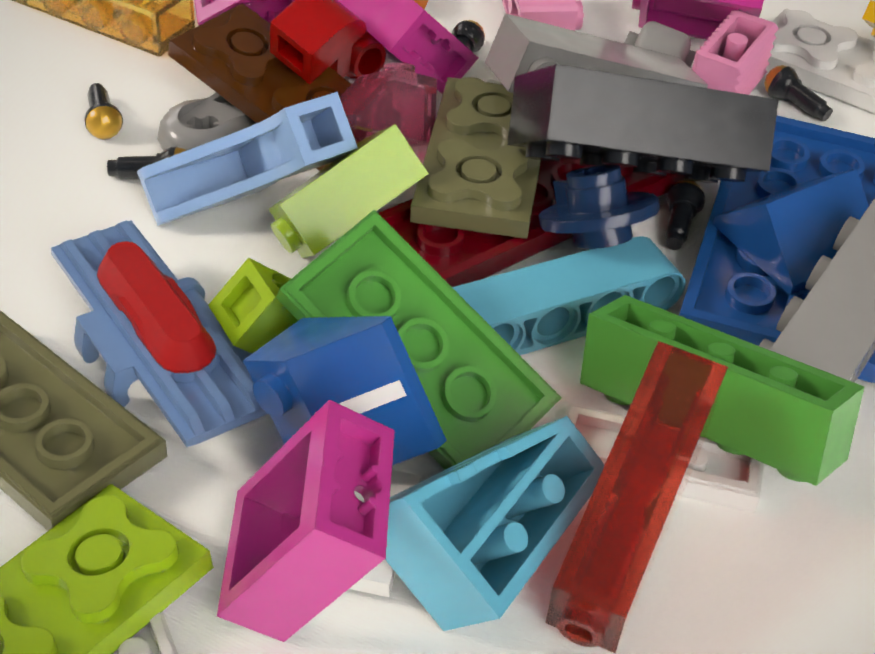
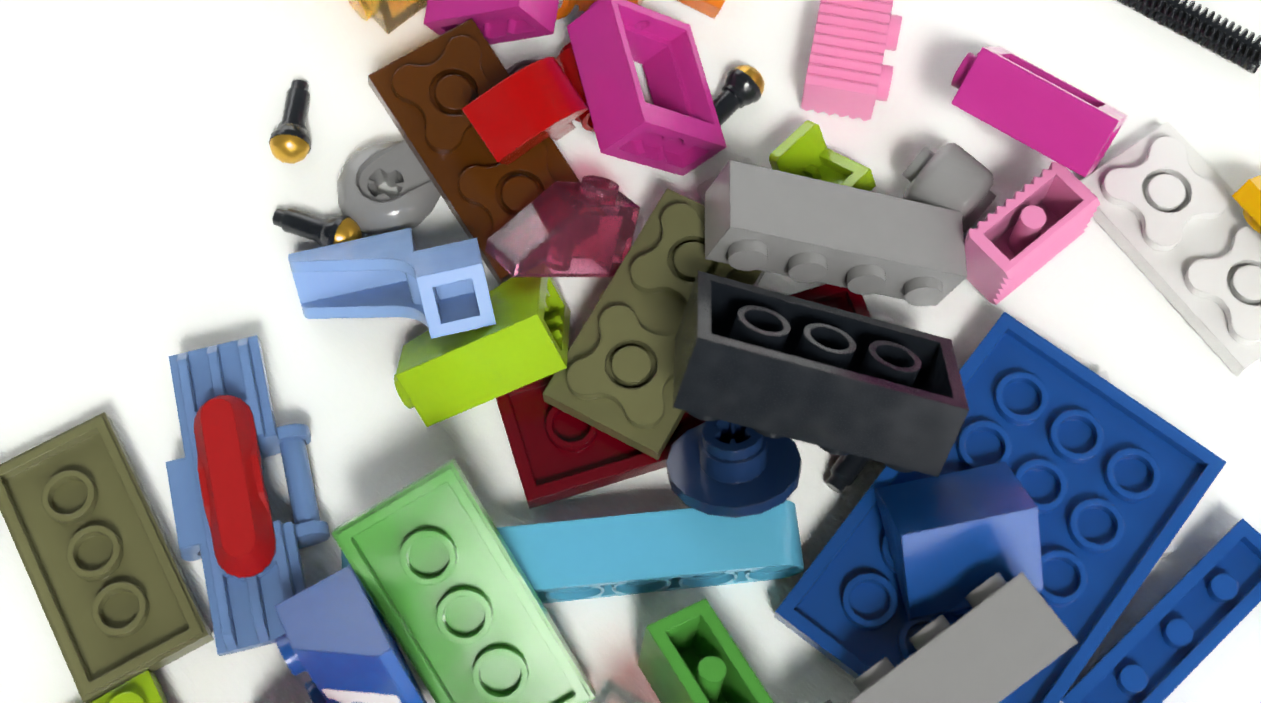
camera: 25 degrees right, 25 degrees up
(250, 308) = (337, 493): lime brick -> none
(785, 85) = (1096, 260): black piece -> none

